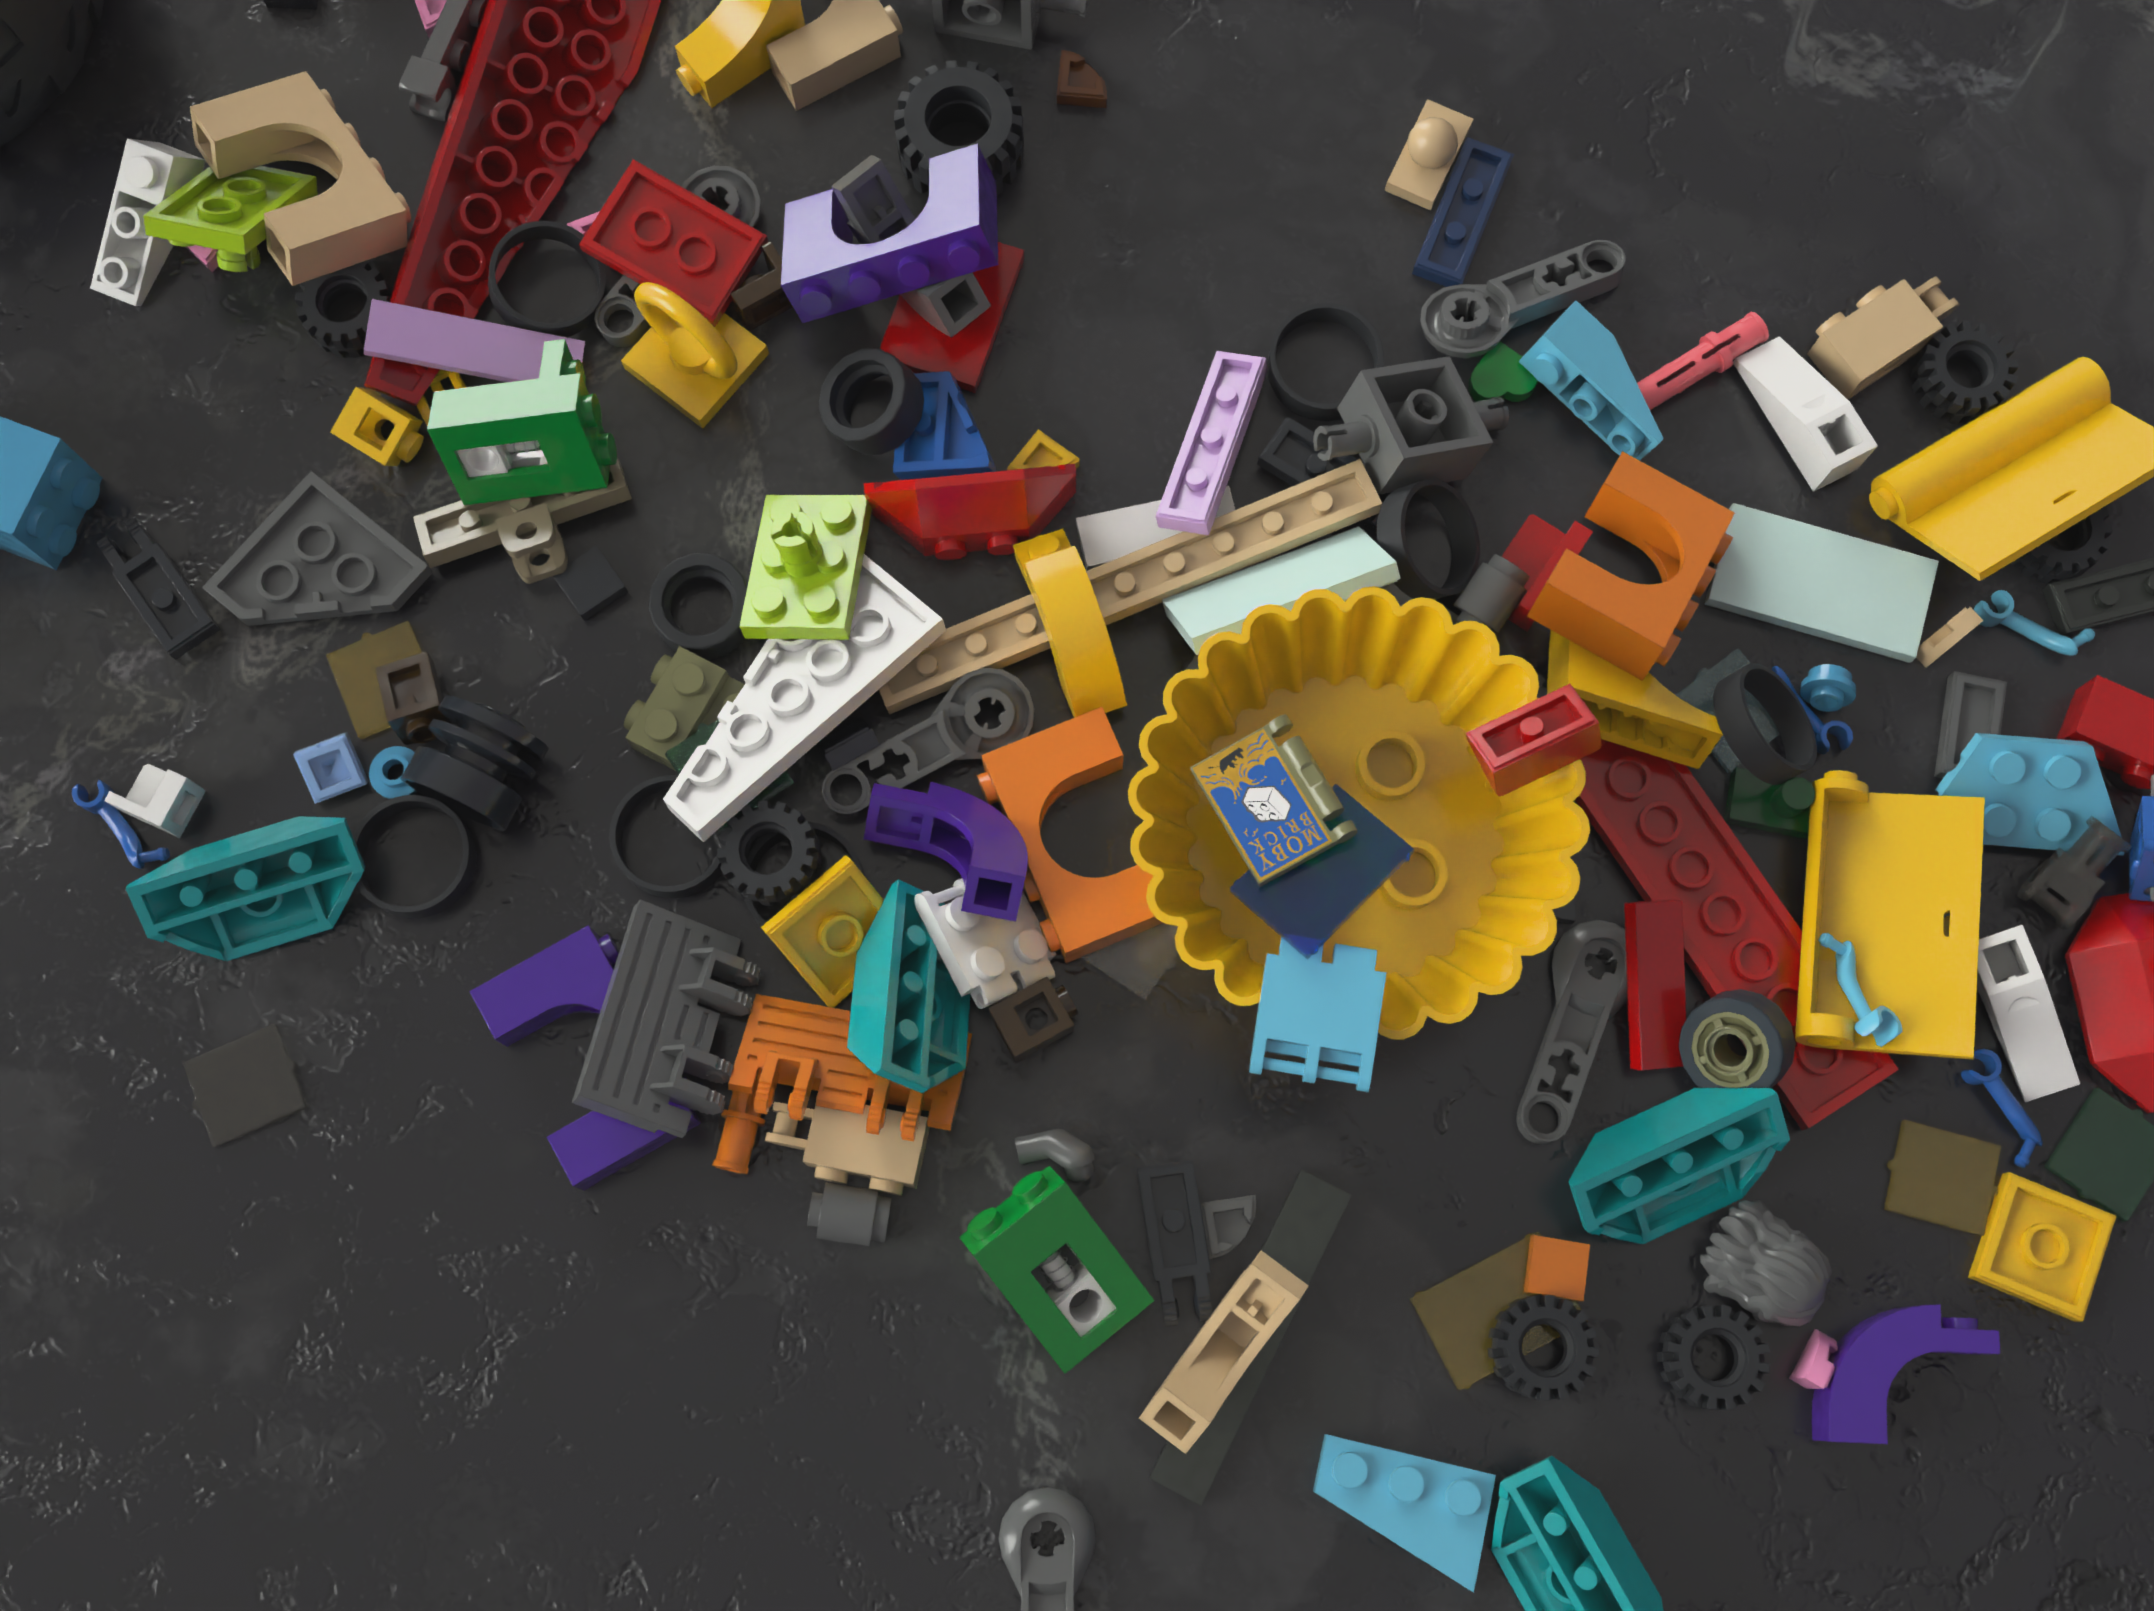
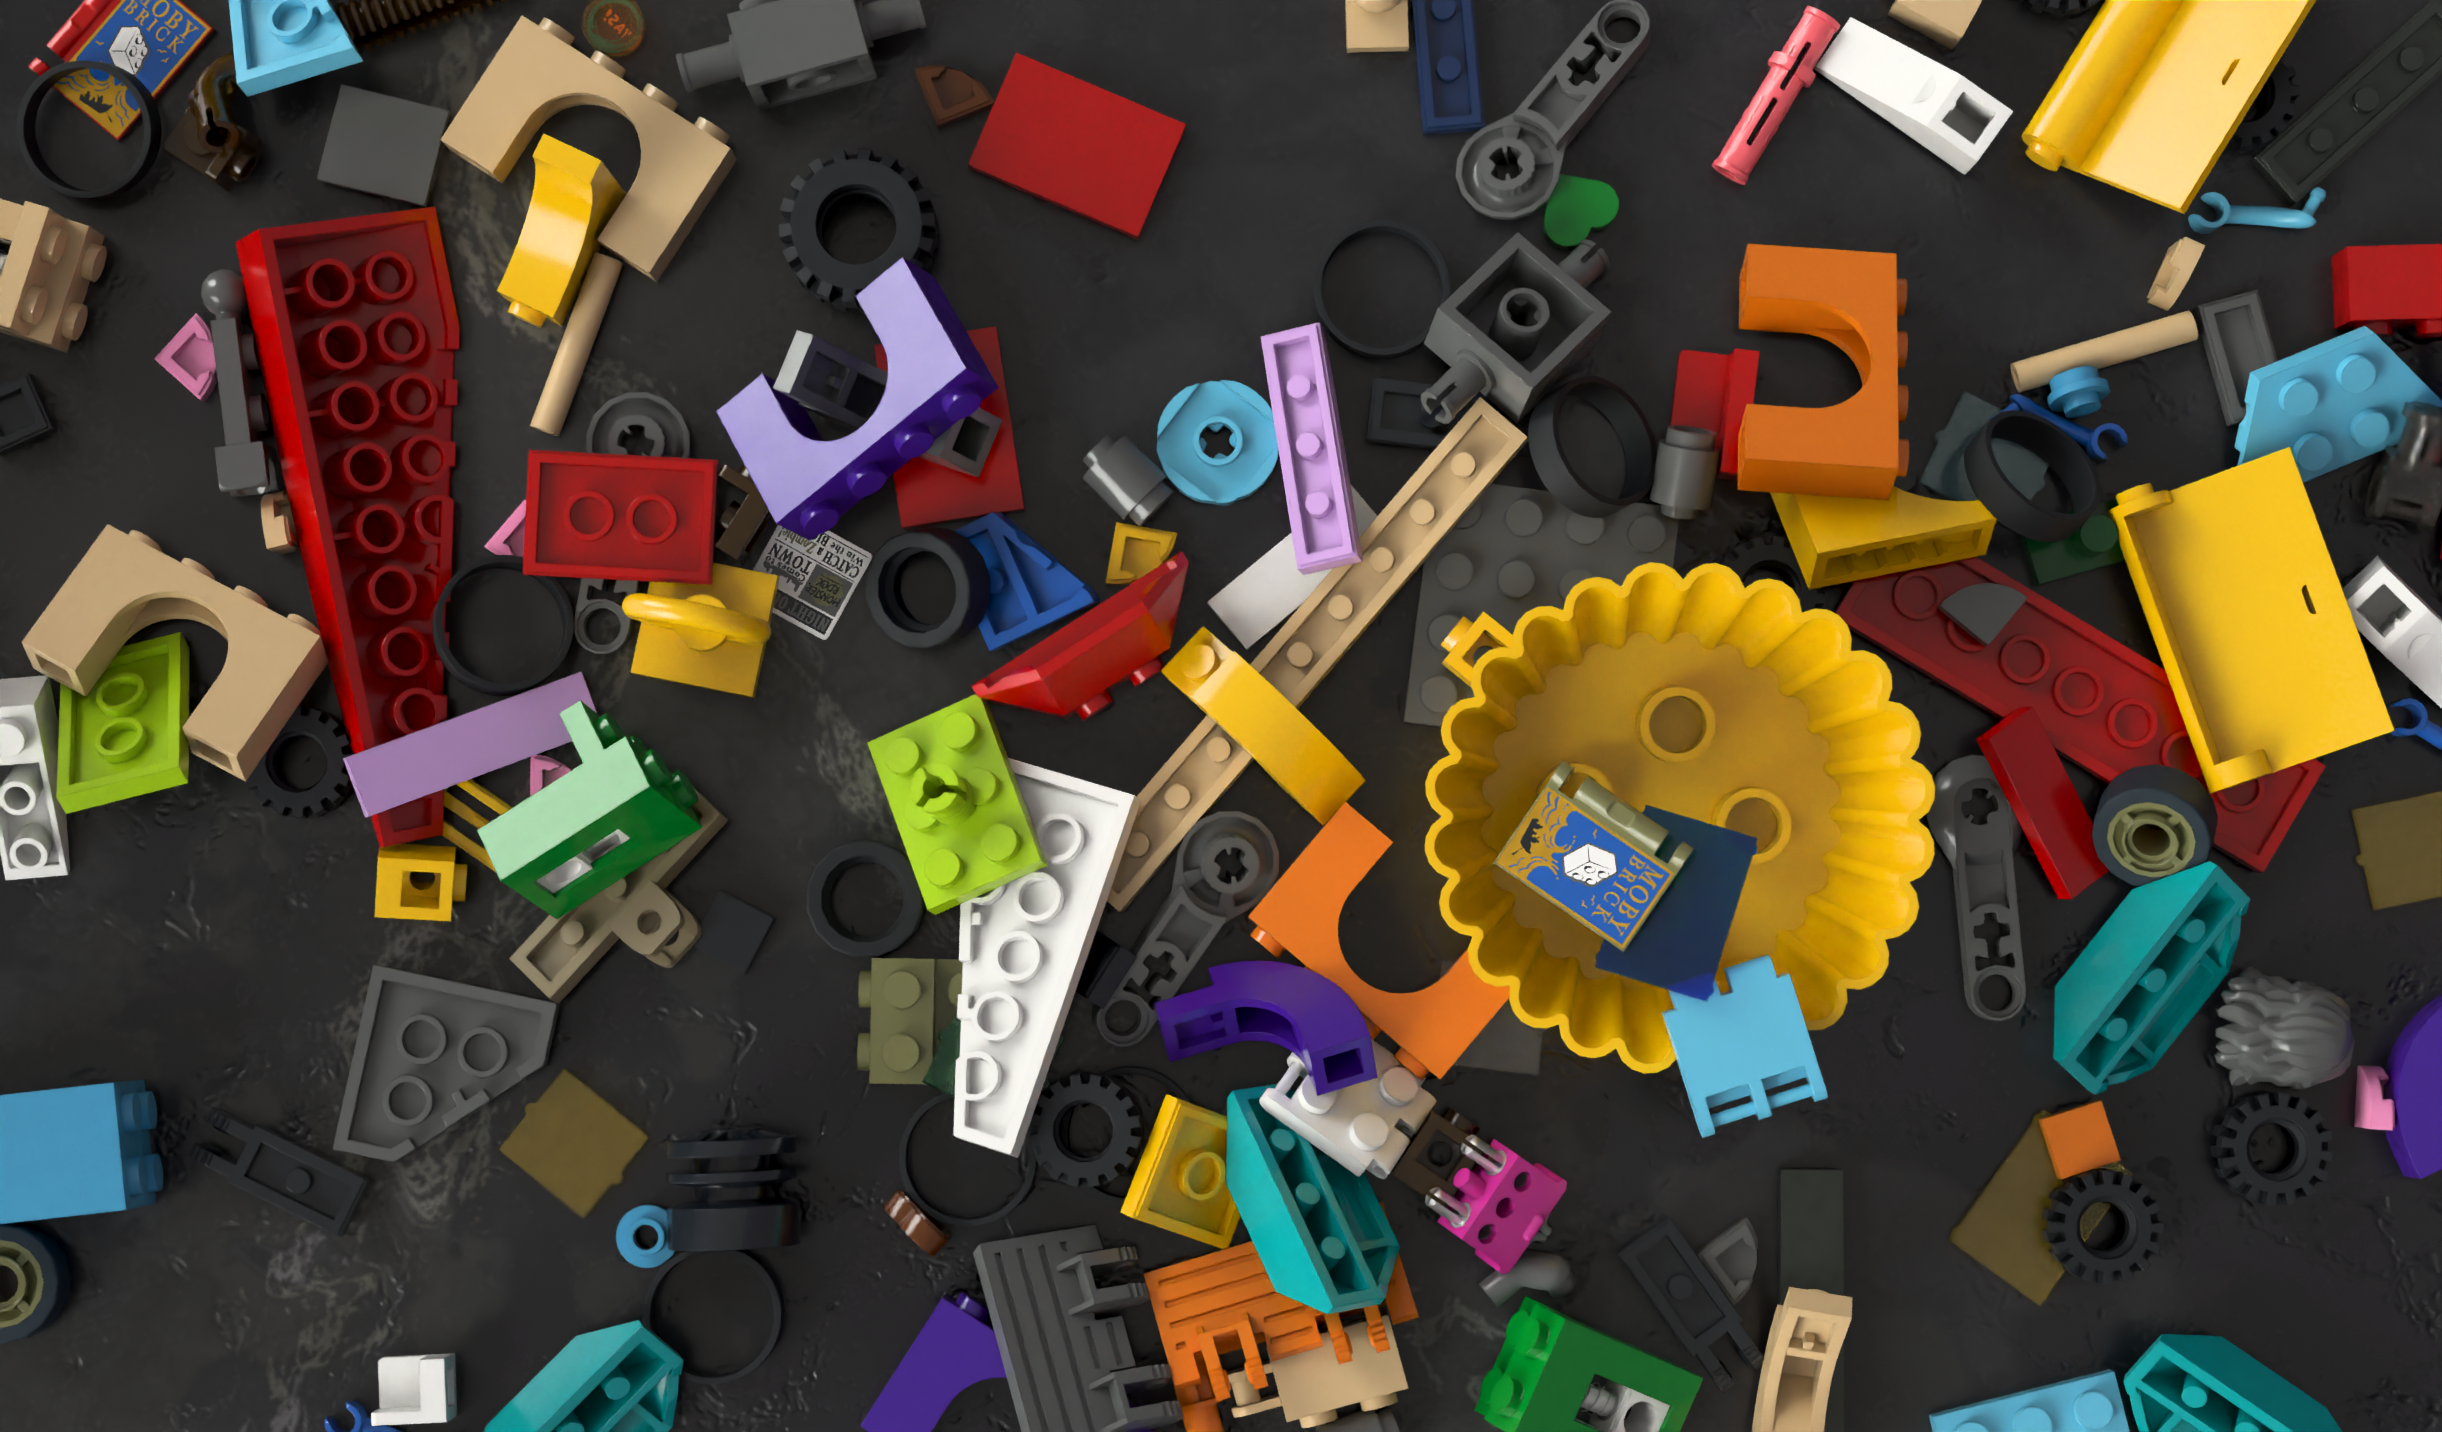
camera: 30 degrees left, 10 degrees up
(331, 767) = (576, 1266): light blue tile -> none
(411, 697) = (622, 1152): dark brown bracket -> none
(426, 138) = (278, 523): none -> tan tile
(604, 867) = (916, 1223): none -> reddish brown tile
(713, 121) = (576, 344): none -> tan piece
(795, 363) = (814, 577): none -> sticker
(1062, 400) = (1126, 479): none -> dark grey brick
(1062, 1077) = (1499, 1203): none -> dark pink piece
(1151, 158) = (1077, 146): none -> red tile
(1154, 382) = (1211, 407): none -> medium azure plate
(1335, 564) = (1468, 588): light aqua tile -> none
(1535, 740) = (1821, 659): red slope -> none
(1591, 377) = (1670, 167): medium azure slope -> none
(1676, 808) = (1982, 609): none -> dark grey tile
(1823, 583) = (2021, 273): light aqua tile -> none
(1867, 671) = (2106, 350): none -> tan piece
(1881, 1021) = (2287, 739): medium azure piece -> none

